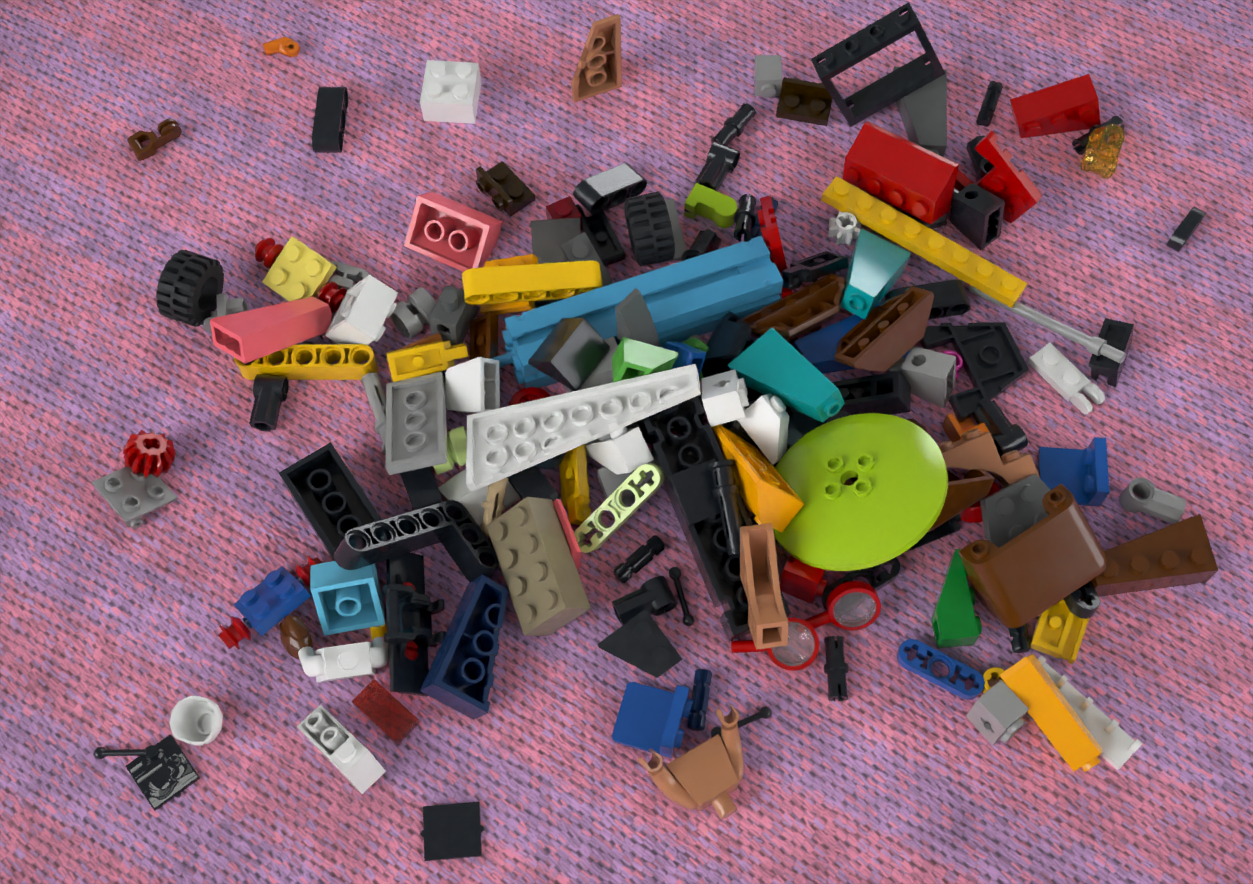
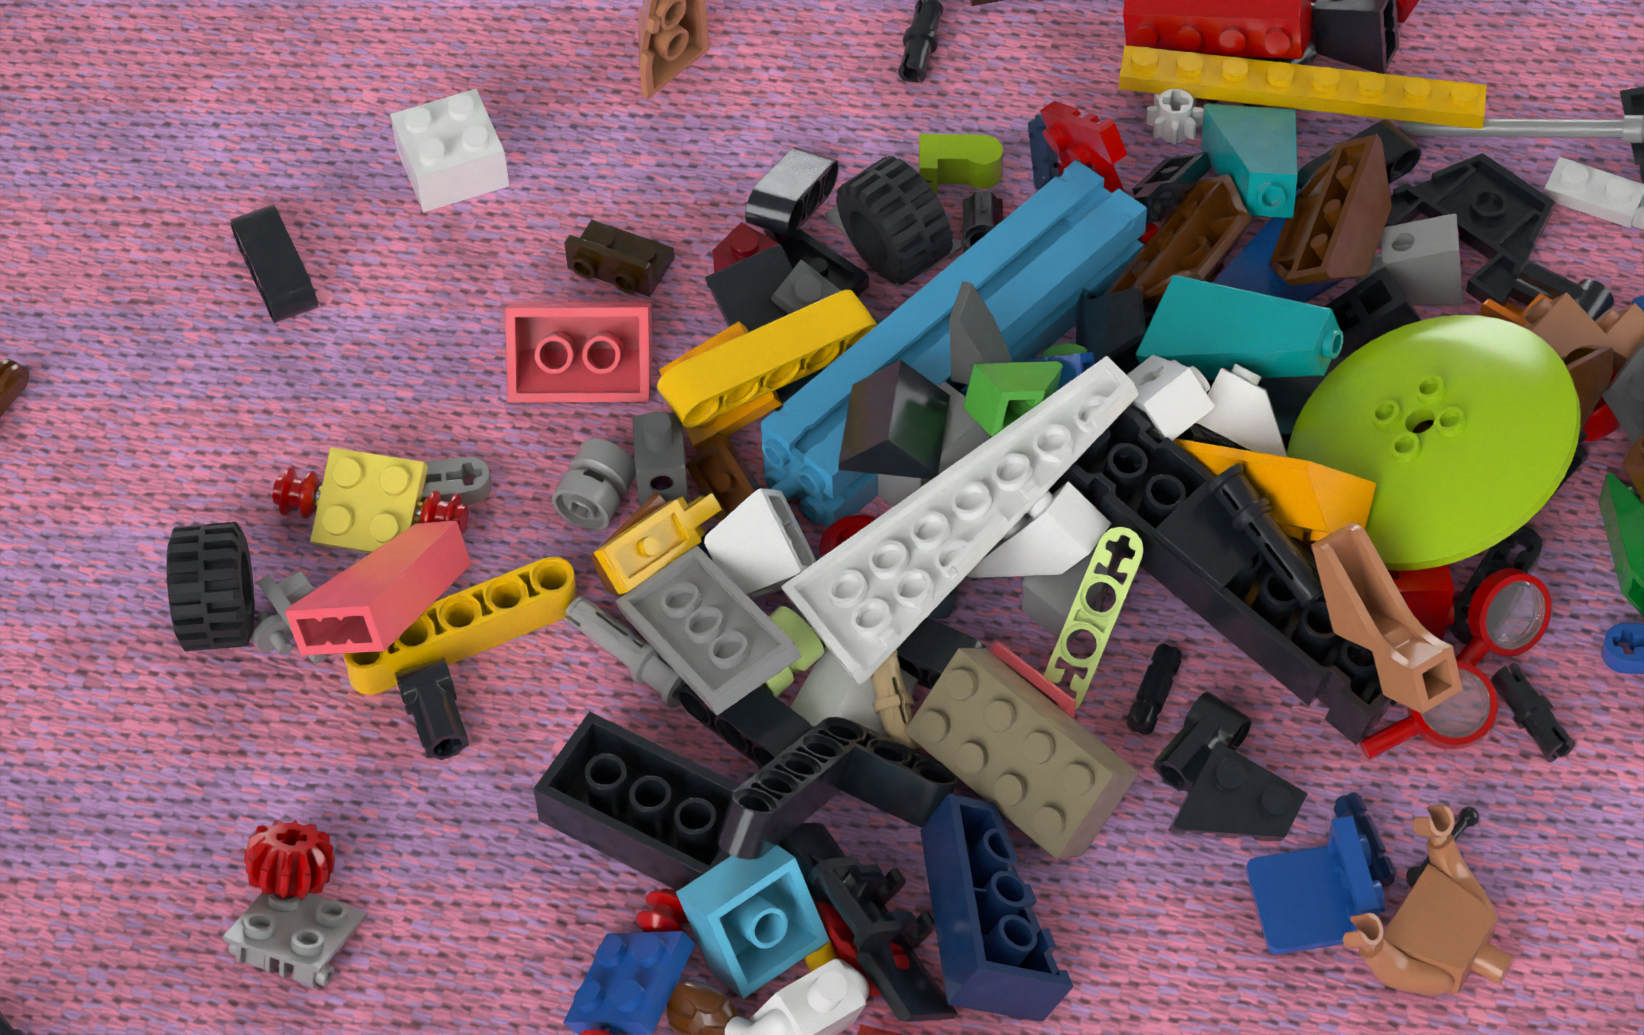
camera: 25 degrees left, 10 degrees down
(282, 45) = (121, 186): orange arm -> none
(363, 313) = (517, 510): white brick -> none
(575, 485) = (993, 618): yellow hinge -> none
(675, 573) = (1277, 741): black hinge -> none
(718, 164) = (931, 99): black piece -> none
(745, 218) = (1020, 157): black pin -> none

